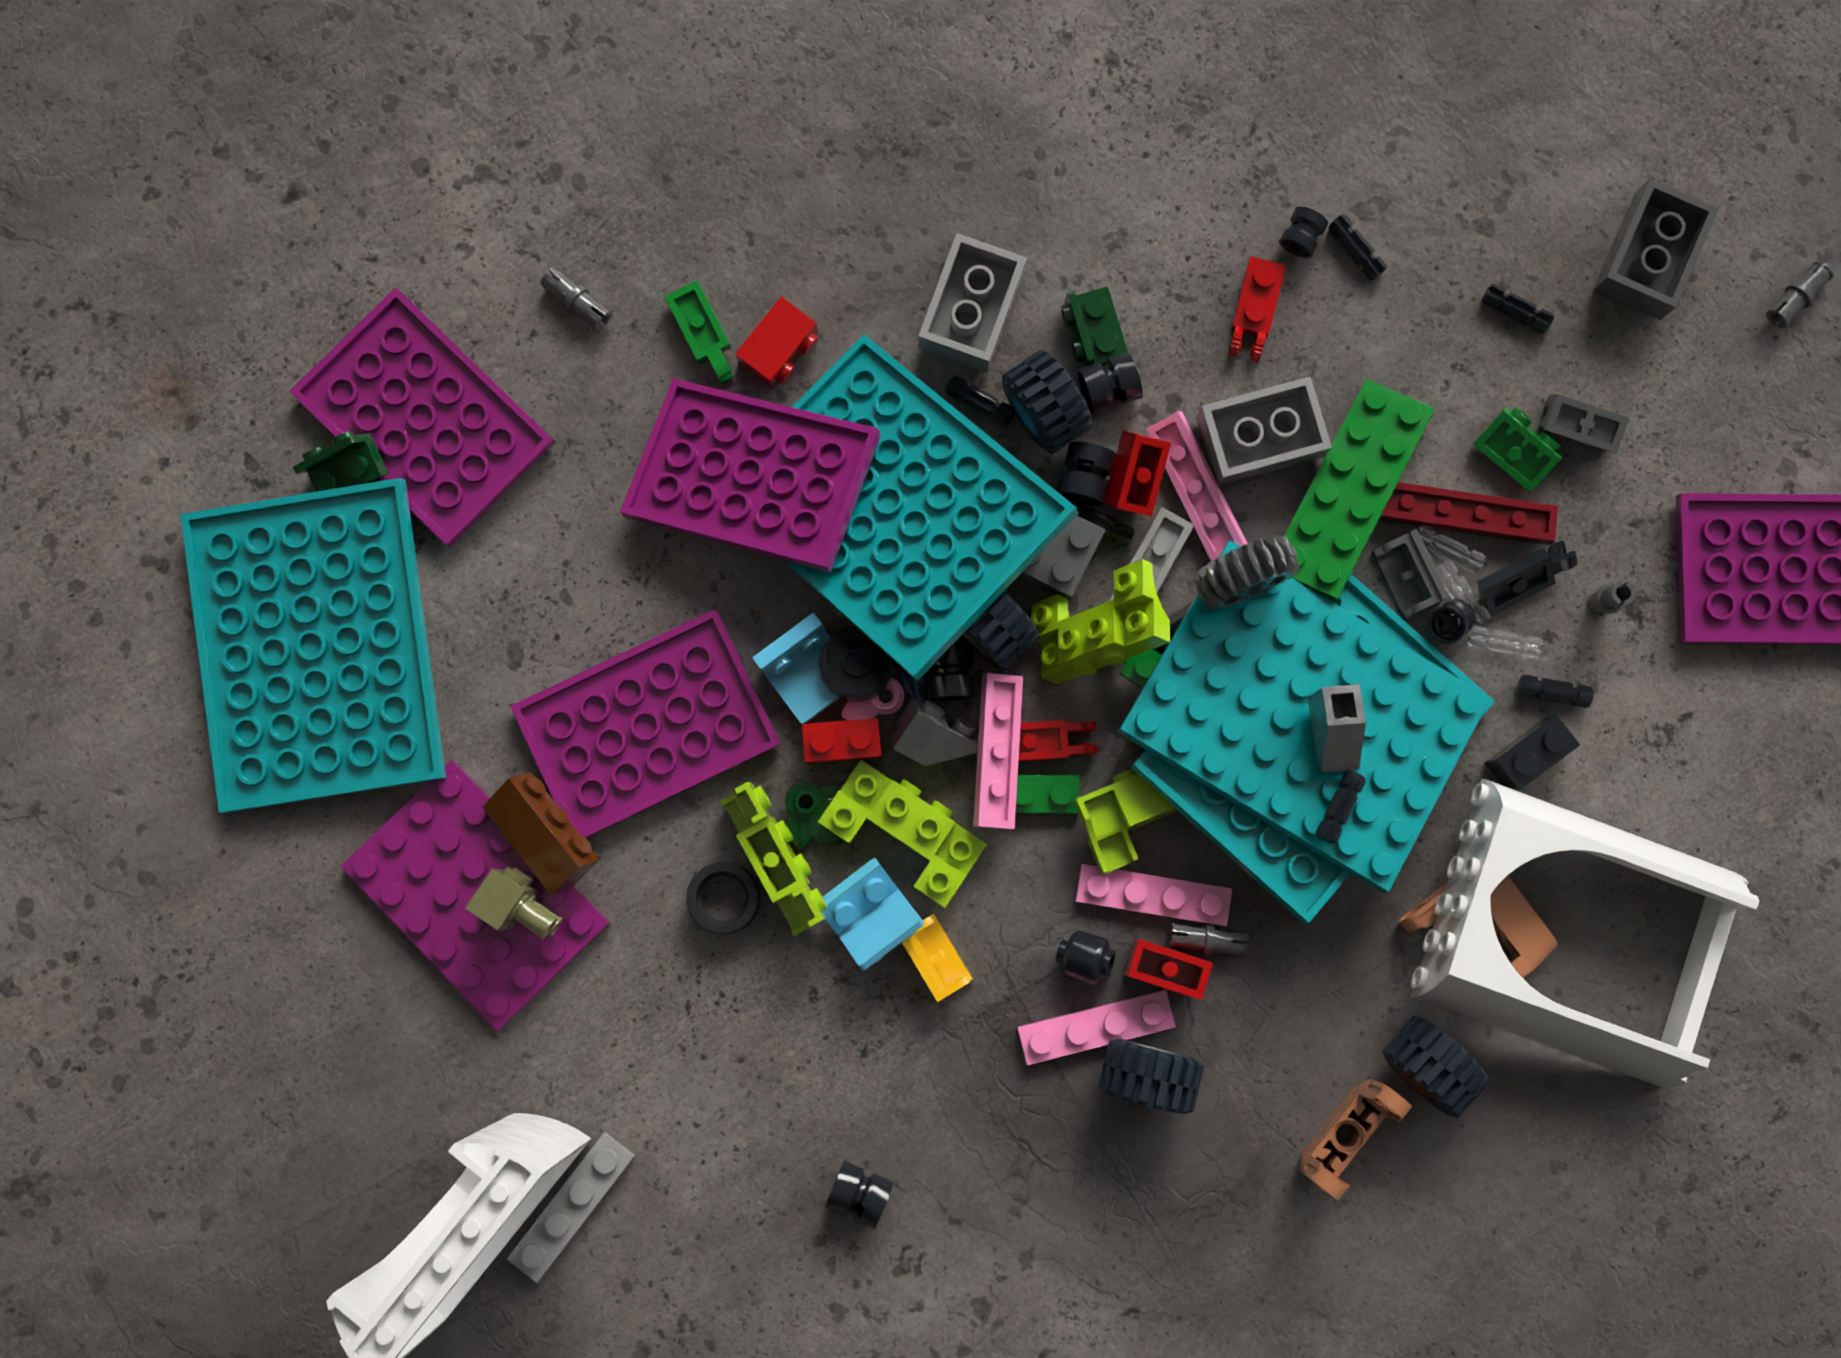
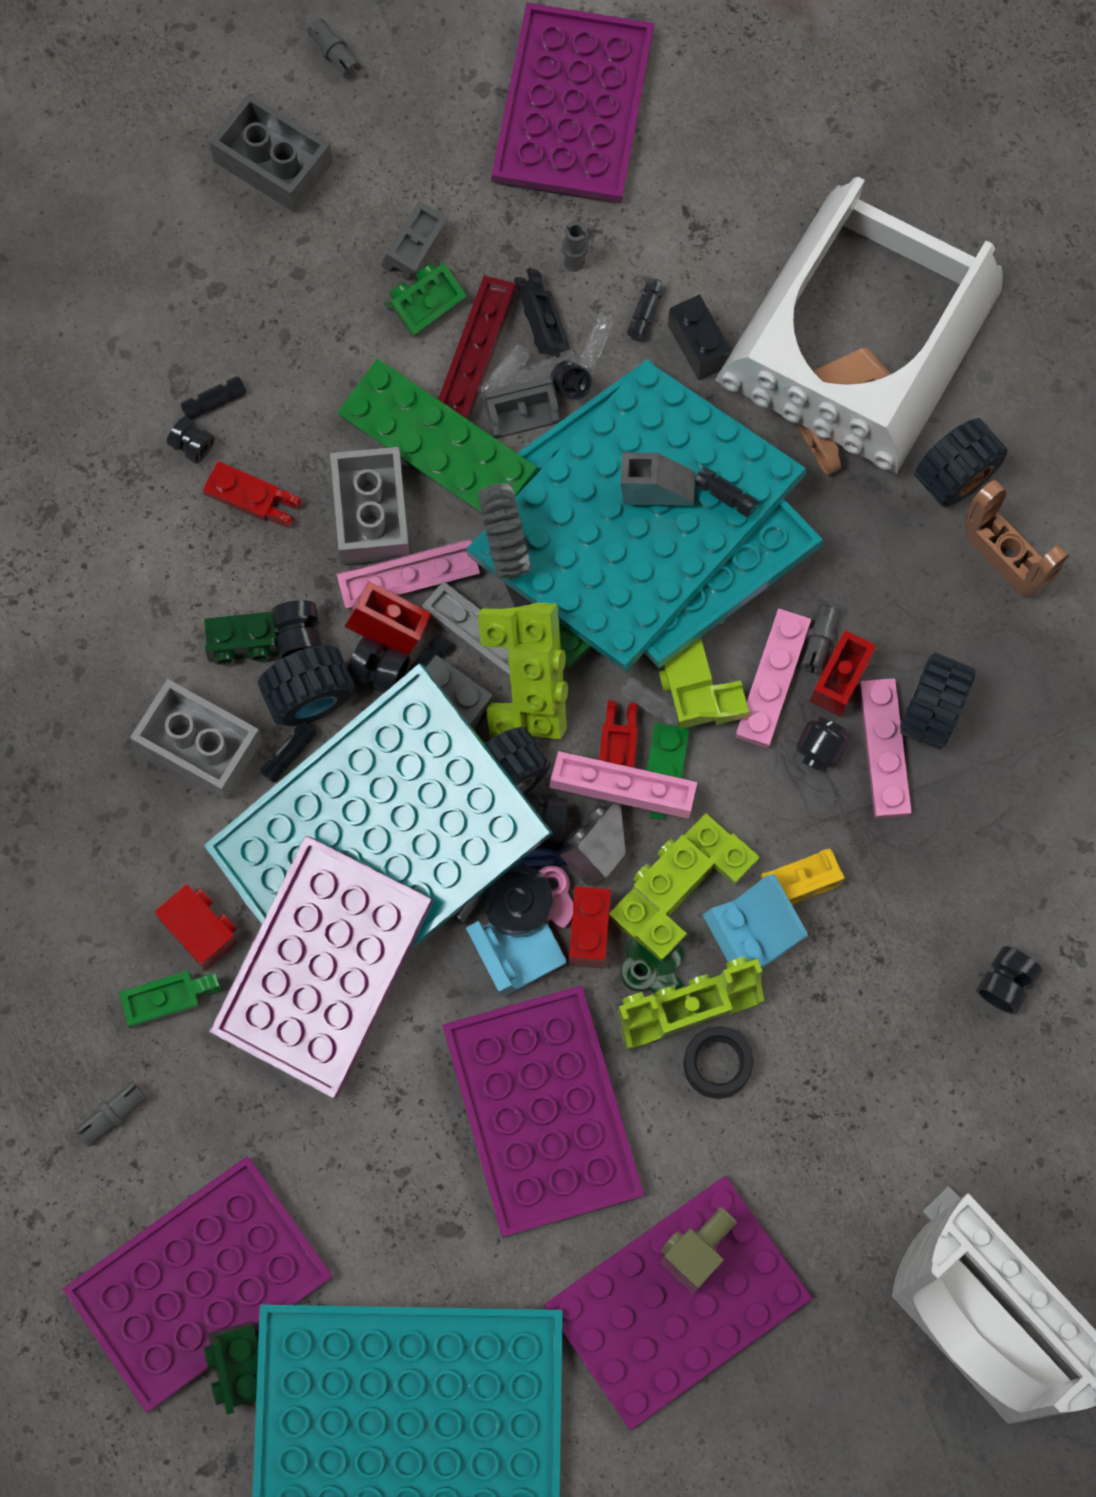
camera: 80 degrees left, 10 degrees down
(541, 832) = (630, 1222): reddish brown brick -> none
(1518, 308) = (298, 275): black axle -> none

